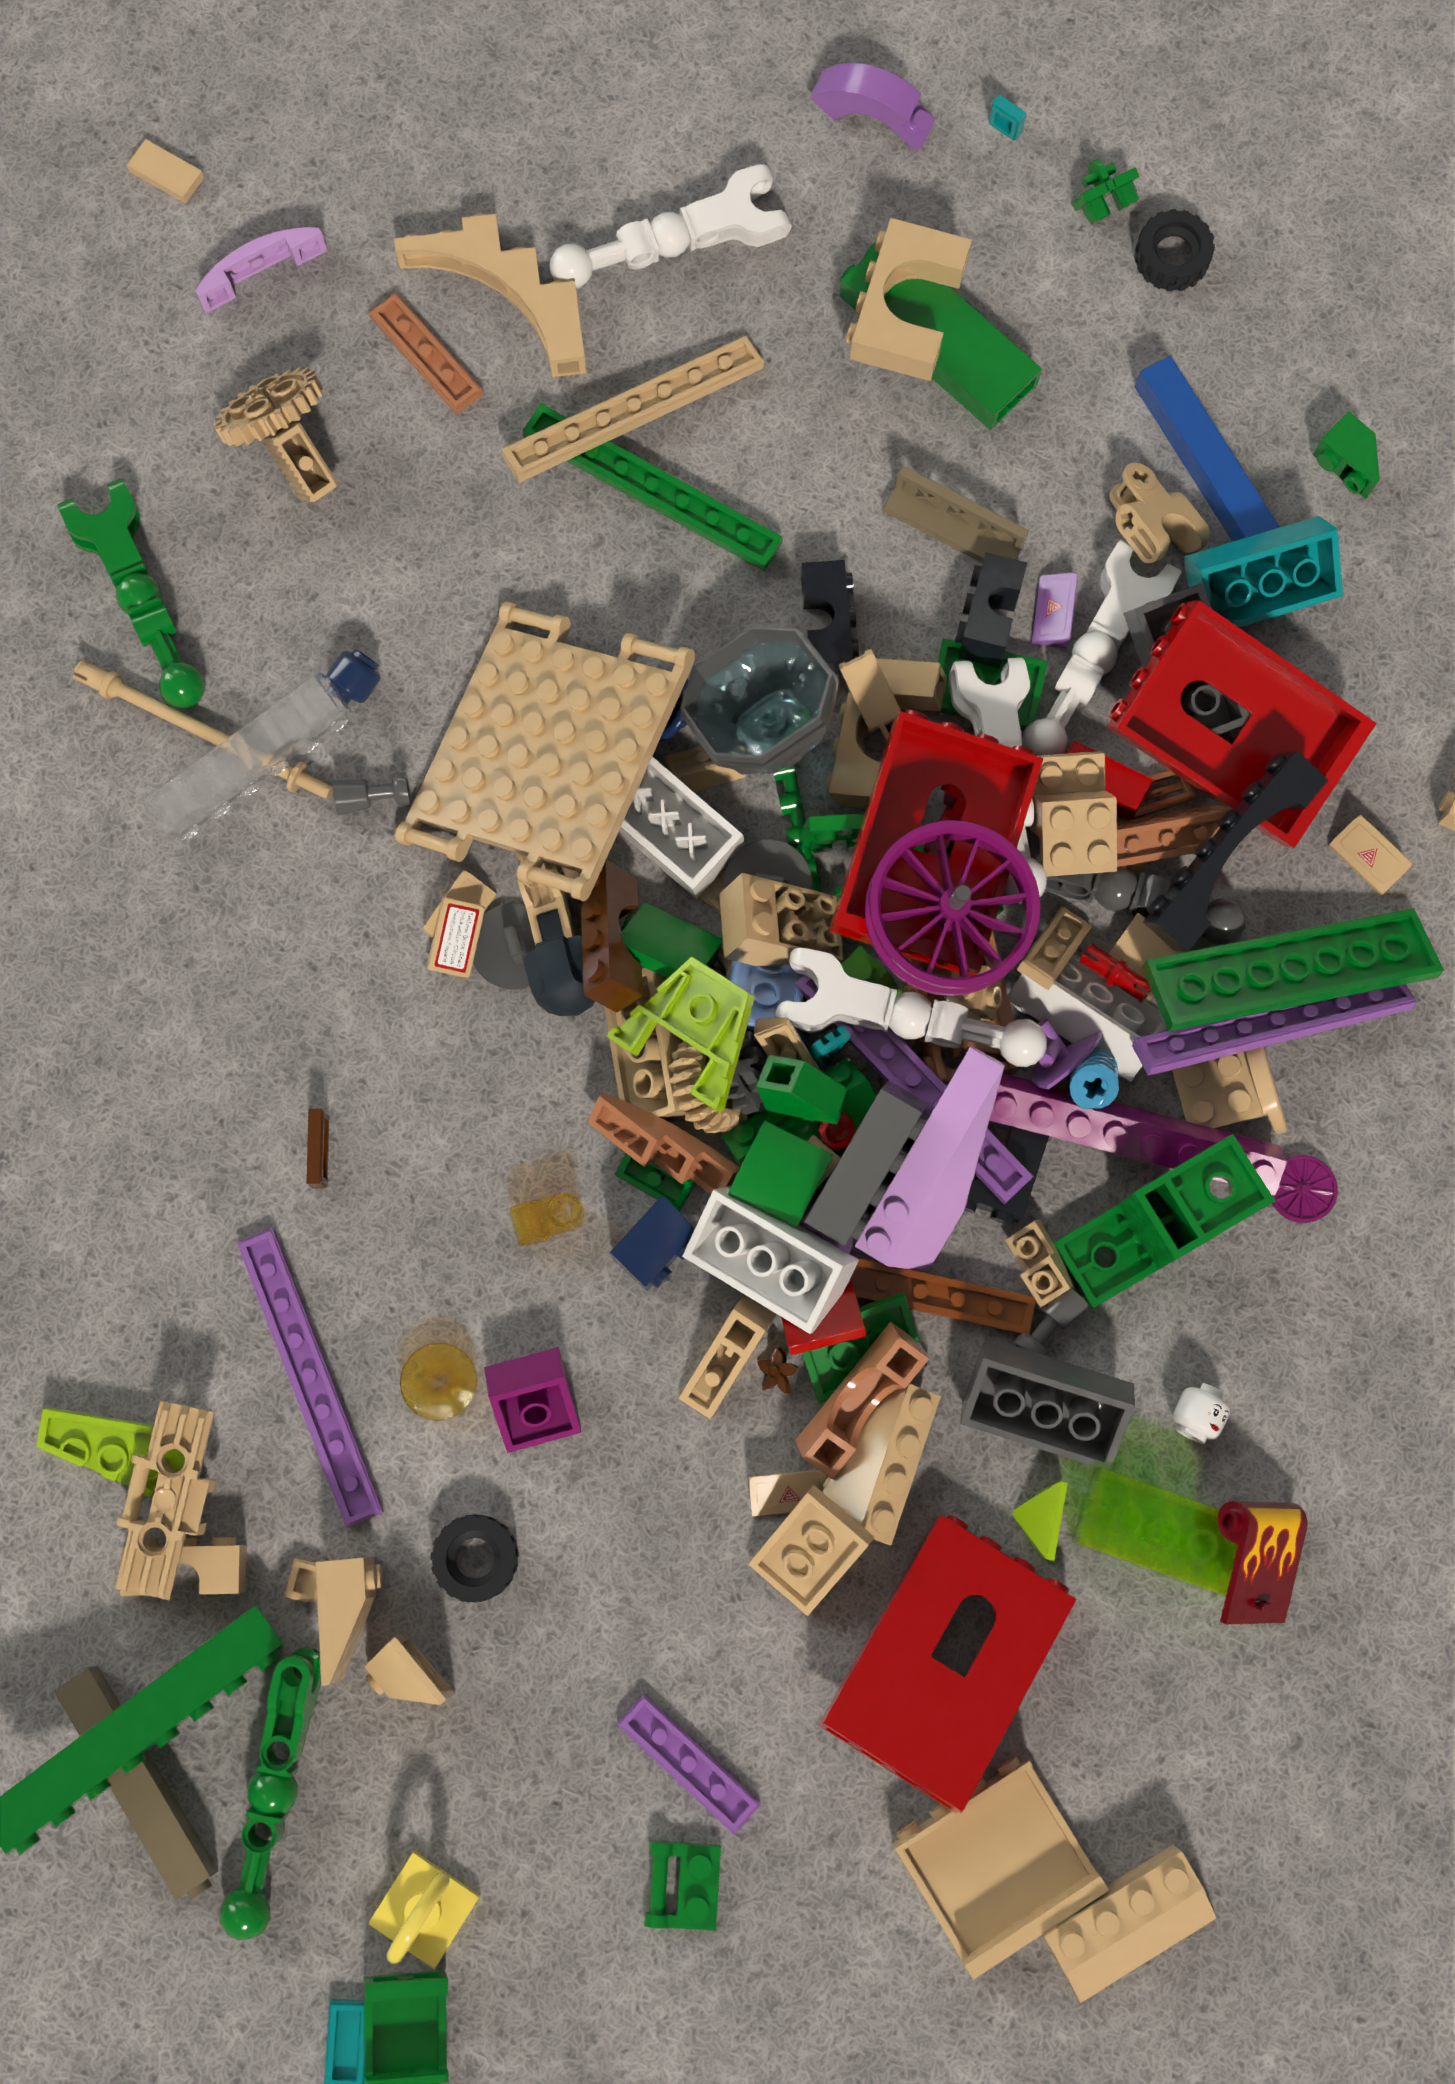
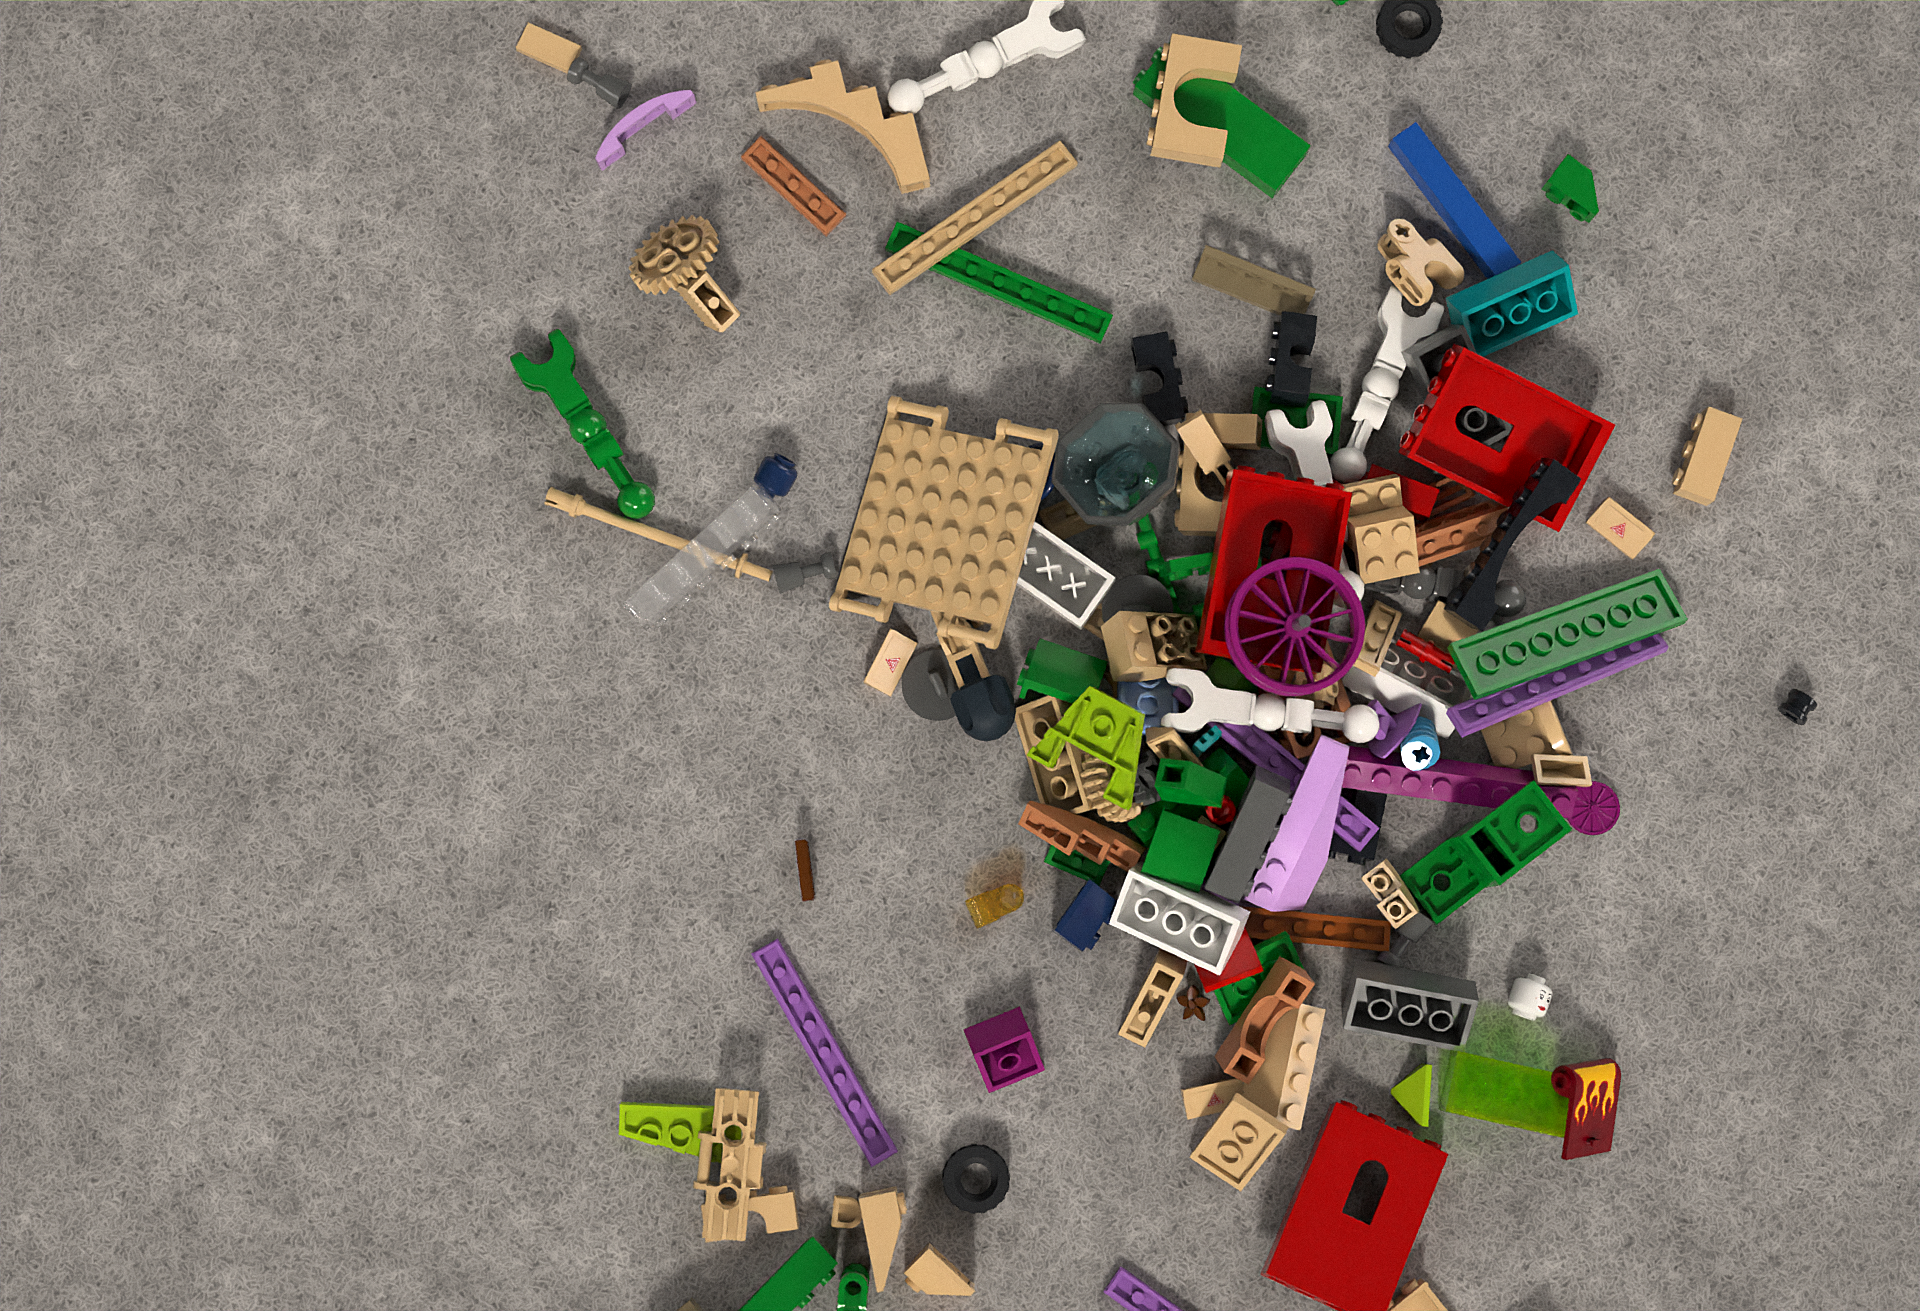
camera: 10 degrees left, 5 degrees up
(226, 219) = (608, 87): none -> dark grey piece
(418, 1379) = (932, 1061): clear yellow dish -> none
(455, 937) = (891, 685): slope -> none
(609, 969) = (1023, 702): reddish brown arch -> none
(1054, 610) = (1343, 349): slope -> none
(1269, 1133) = (1561, 770): none -> tan slope

